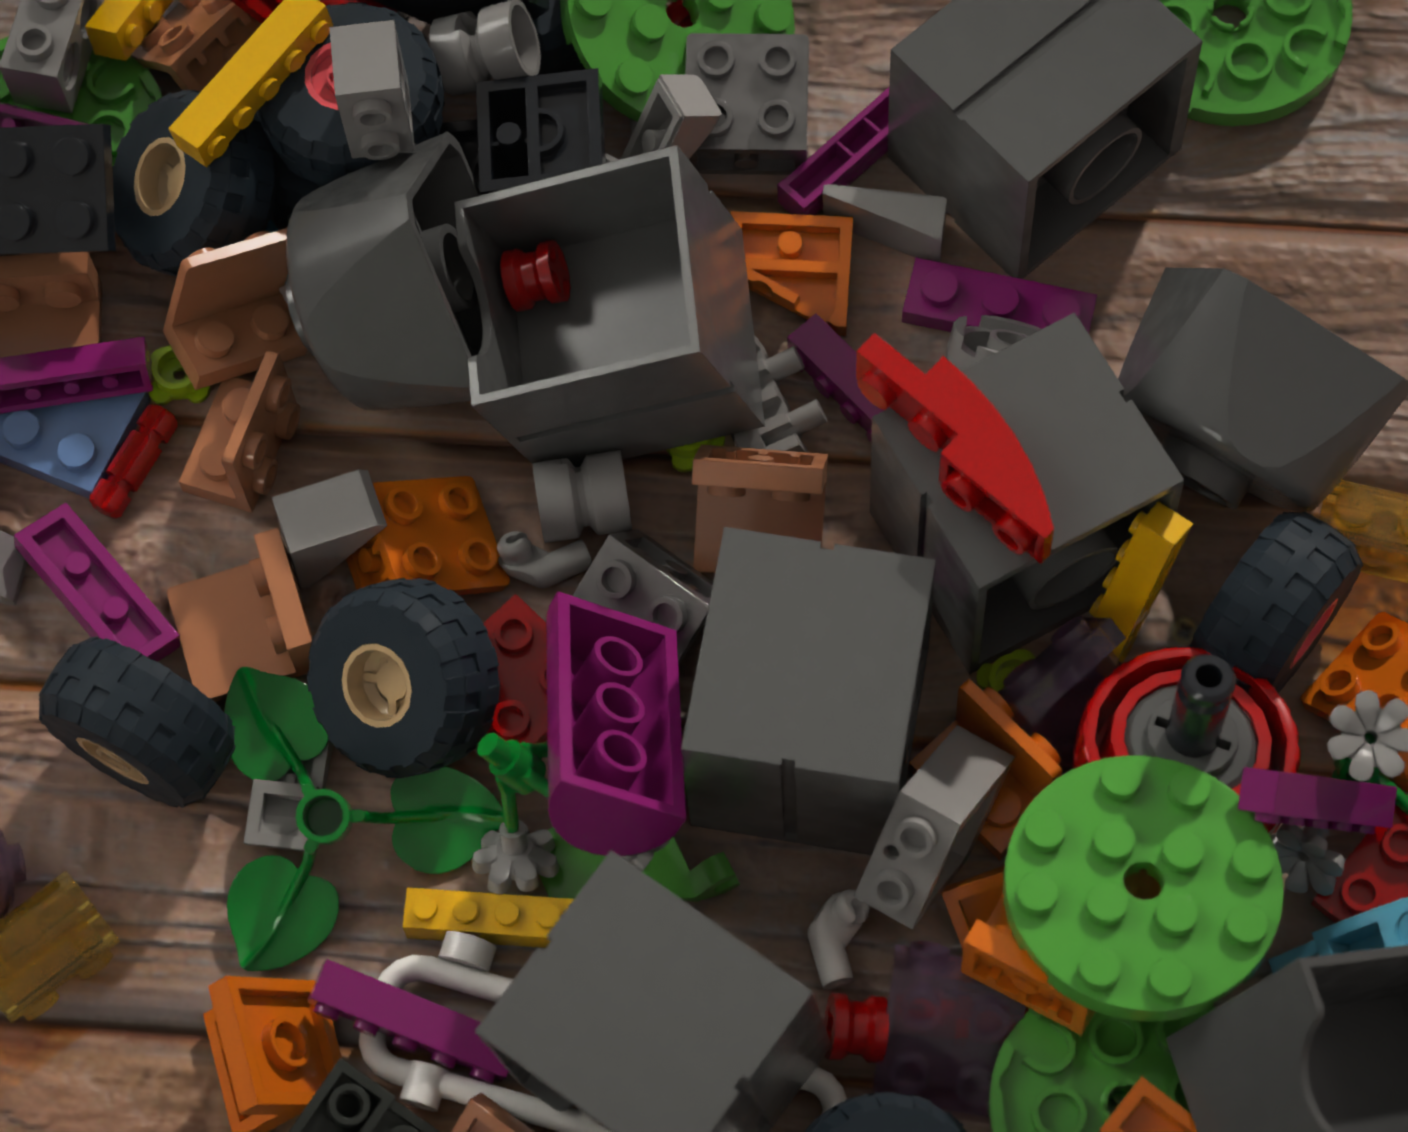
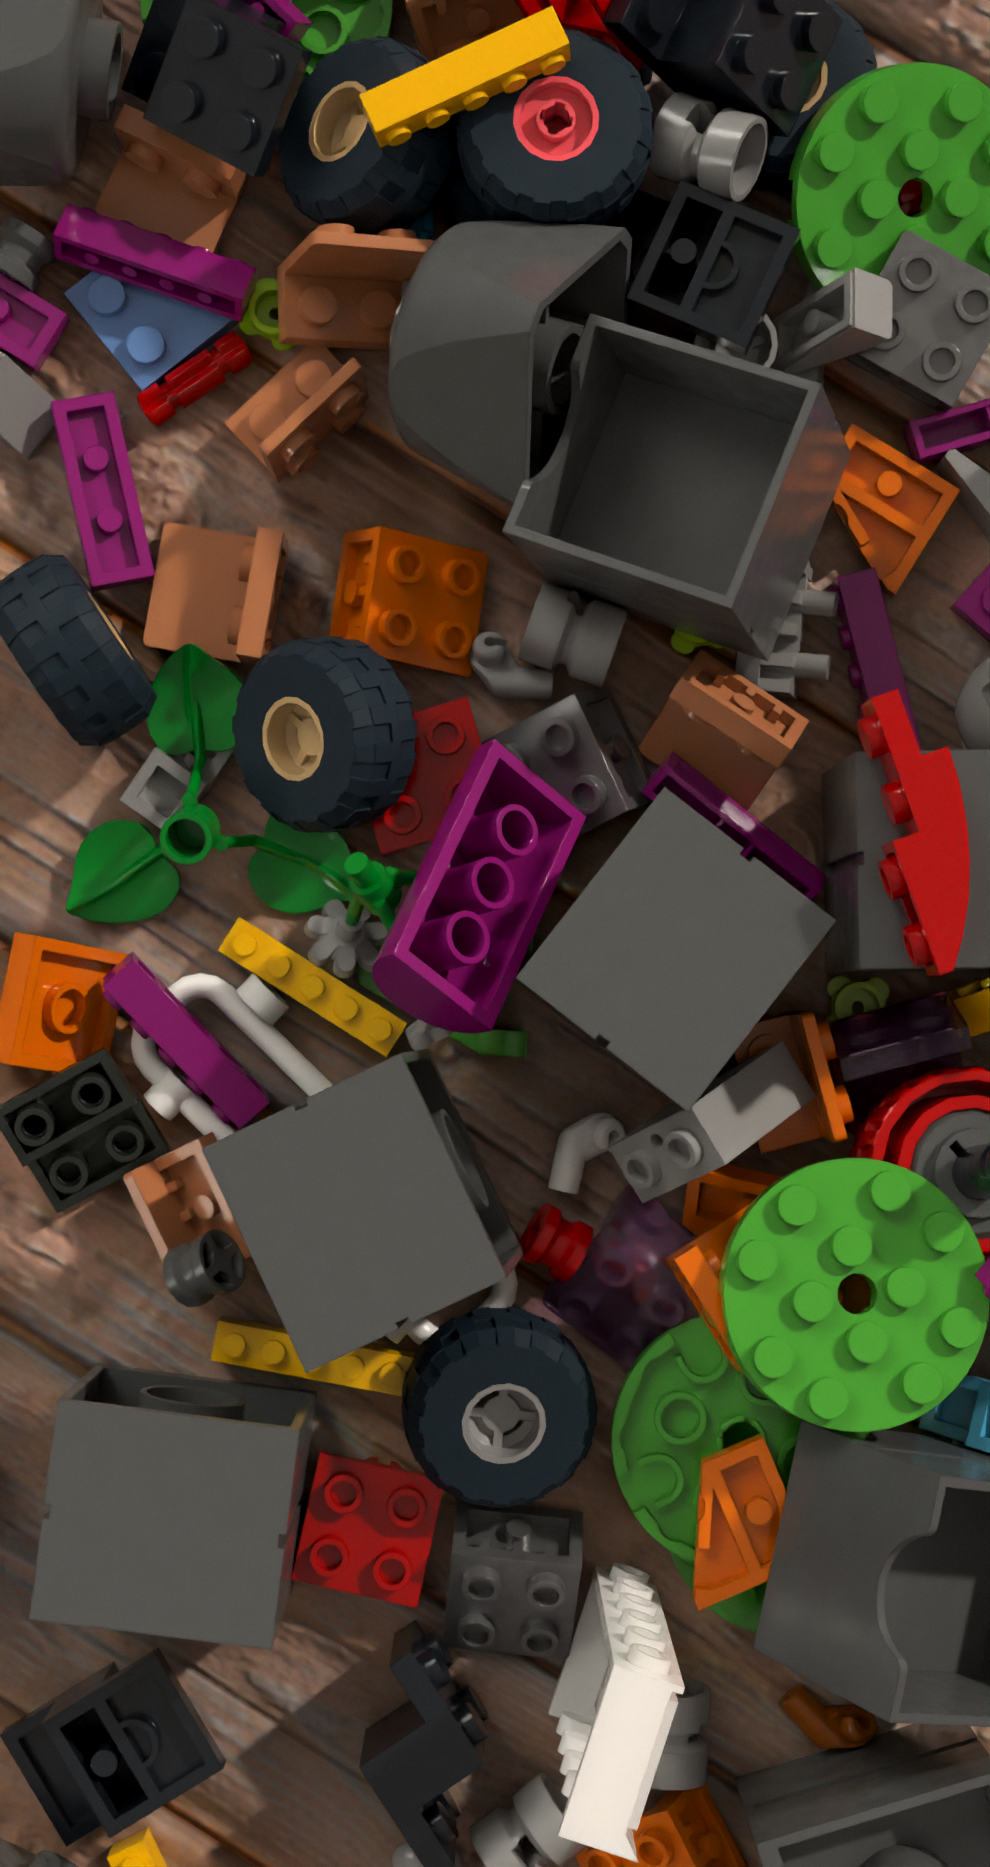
camera: 20 degrees right, 20 degrees up
(328, 523) = (333, 544): light grey slope -> none
(372, 89) = (566, 164): light grey brick -> none
(535, 276) = (634, 410): red wheel -> none

